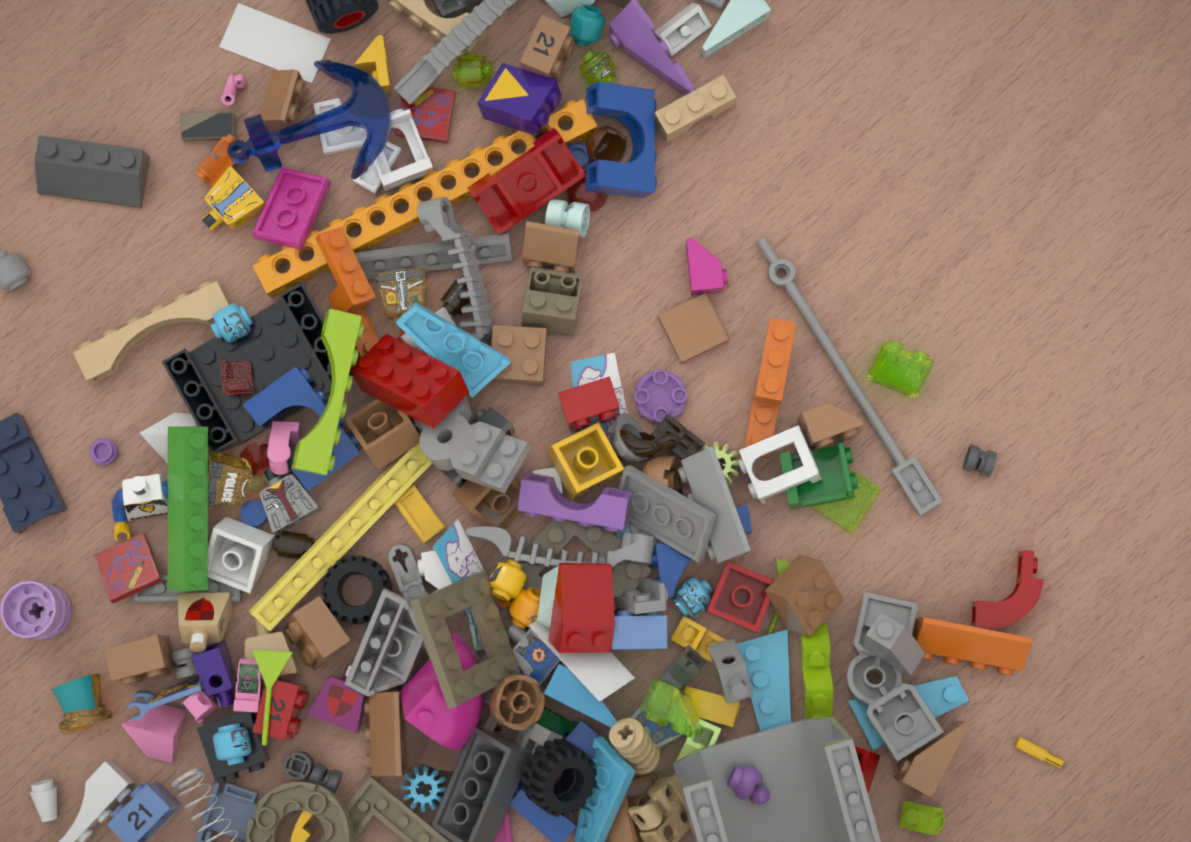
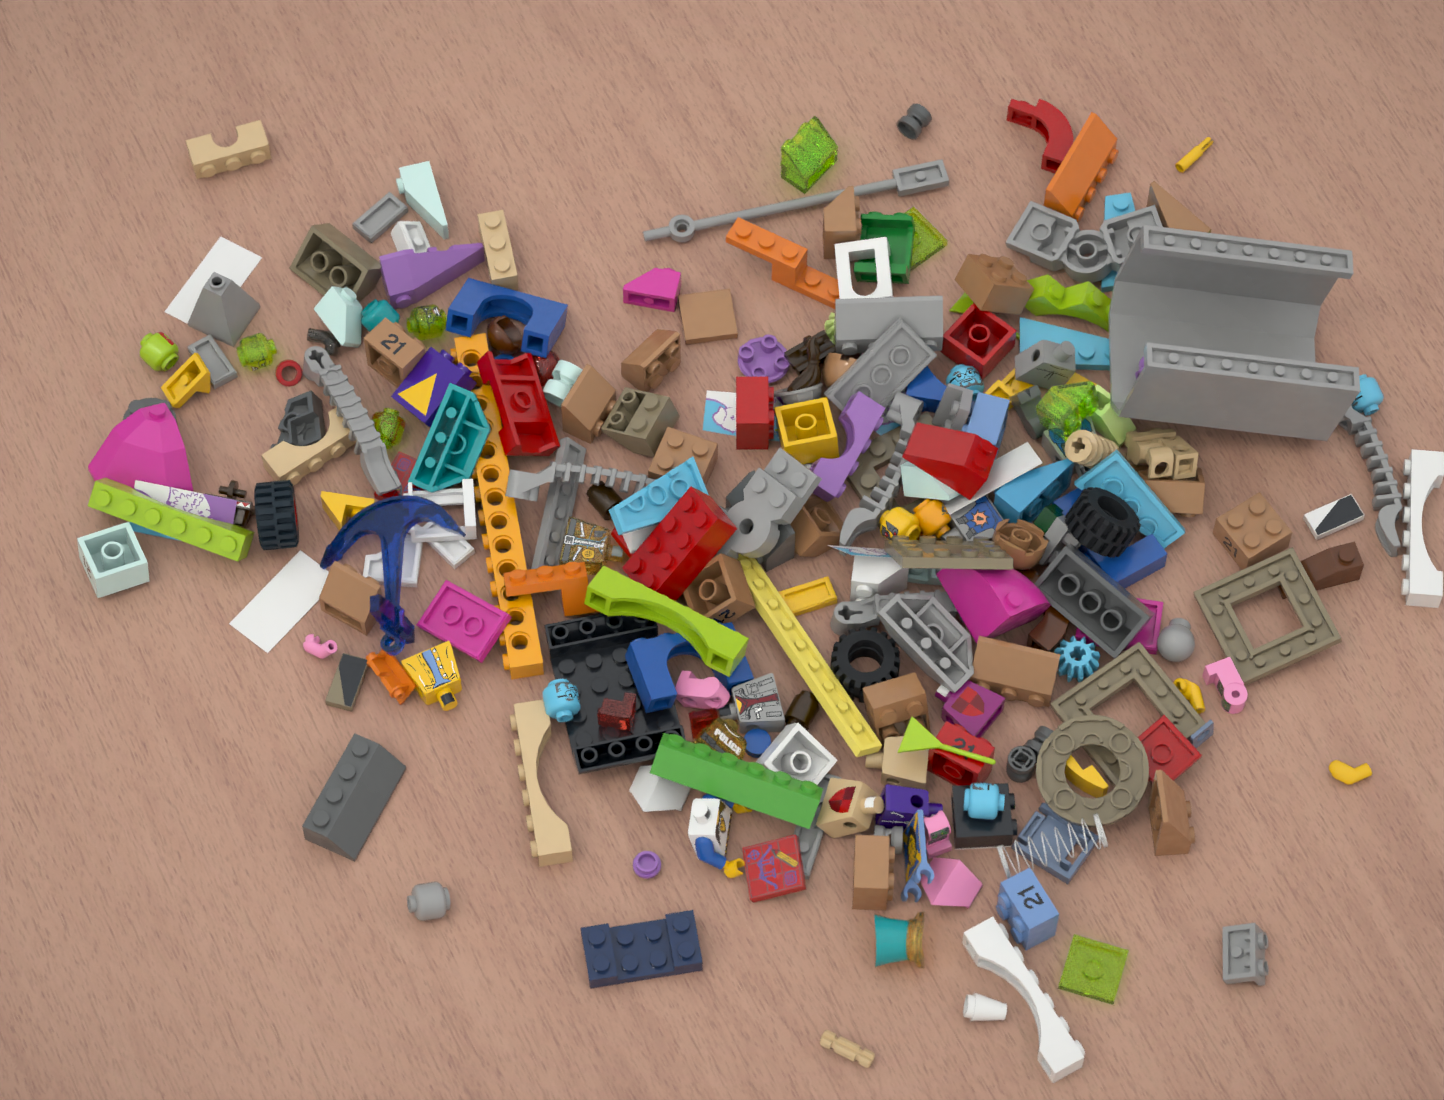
camera: 75 degrees left, 20 degrees down
(23, 603) = (791, 942): lavender wheel -> none
(248, 687) = (930, 774): leg -> none
(462, 134) = (452, 442): none -> teal wedge
(621, 291) = (652, 360): none -> medium nougat slope
(893, 644) = (1060, 220): light grey slope -> none

